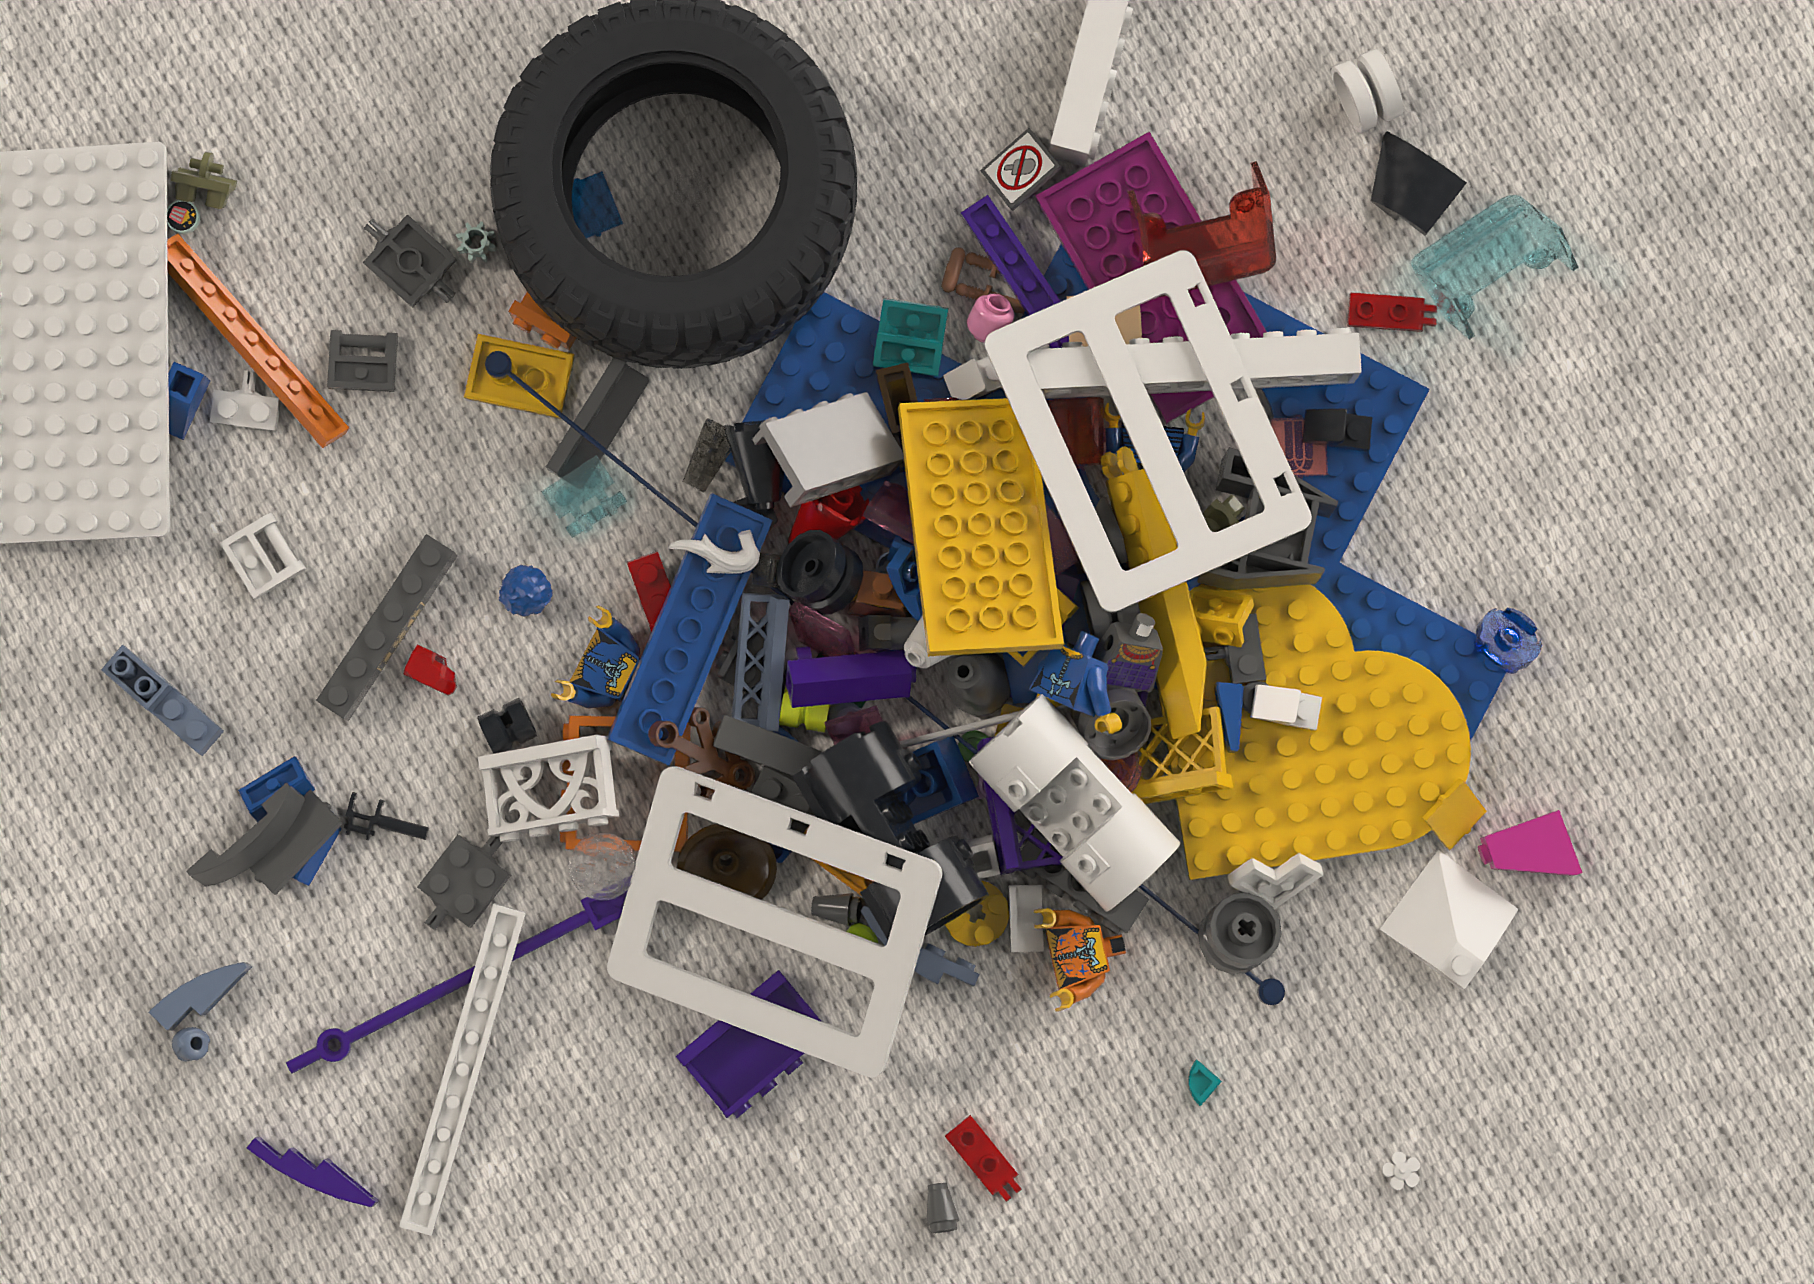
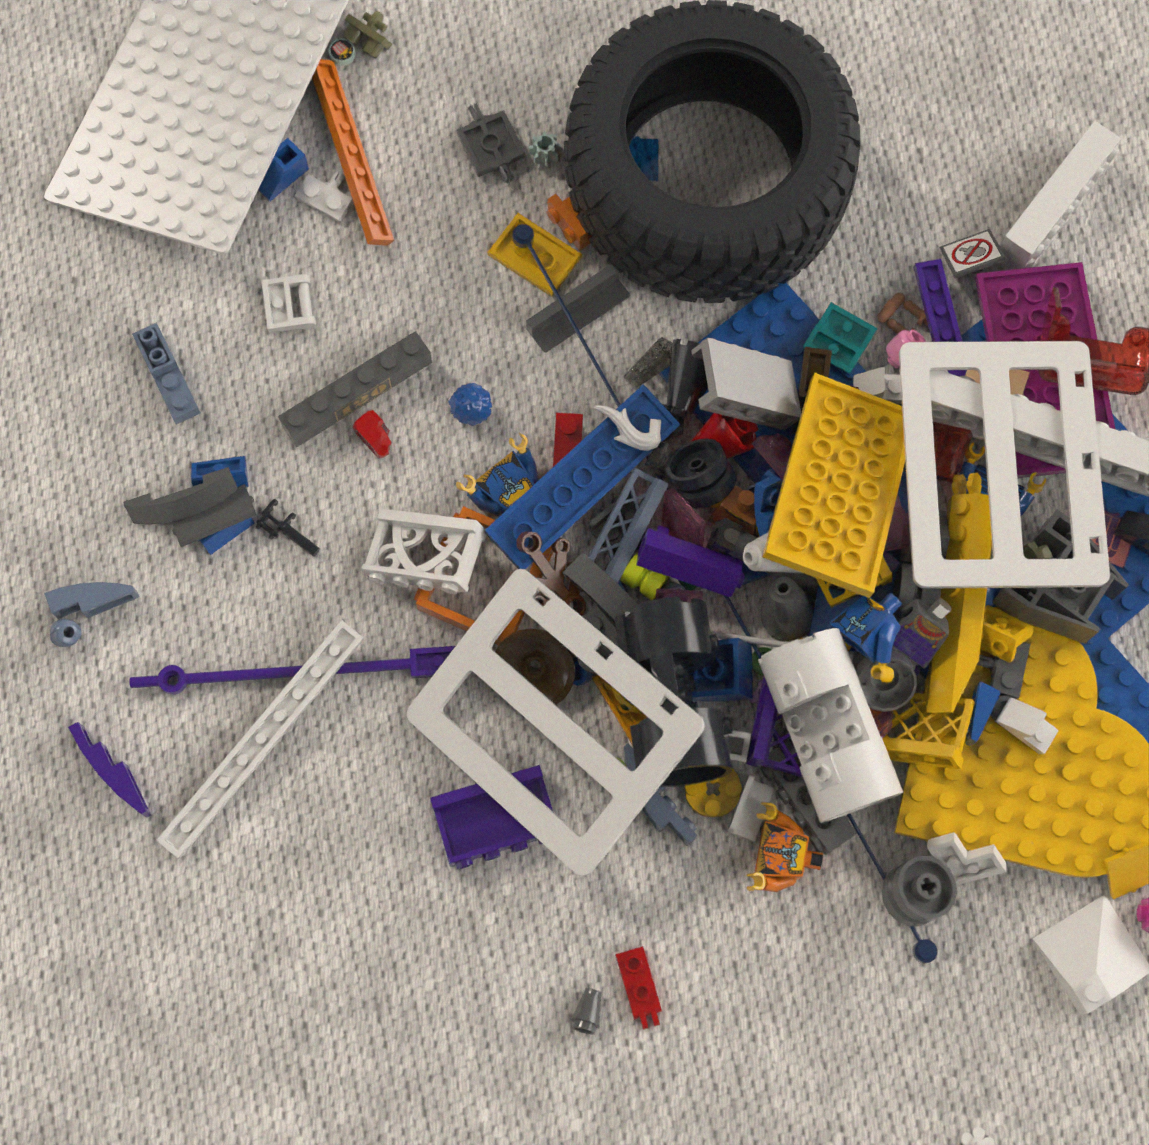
camera: 25 degrees right, 10 degrees down
(362, 372) = (421, 204): dark grey plate -> none
(463, 881) = (328, 599): dark grey plate -> none
(498, 735) = (413, 496): black wheel -> none
(577, 488) = (544, 347): clear light blue plate -> none
(602, 866) = (438, 627): clear tile -> none
(838, 908) = (609, 738): dark grey cone -> none
(1201, 1082) = (840, 1000): teal tile -> none

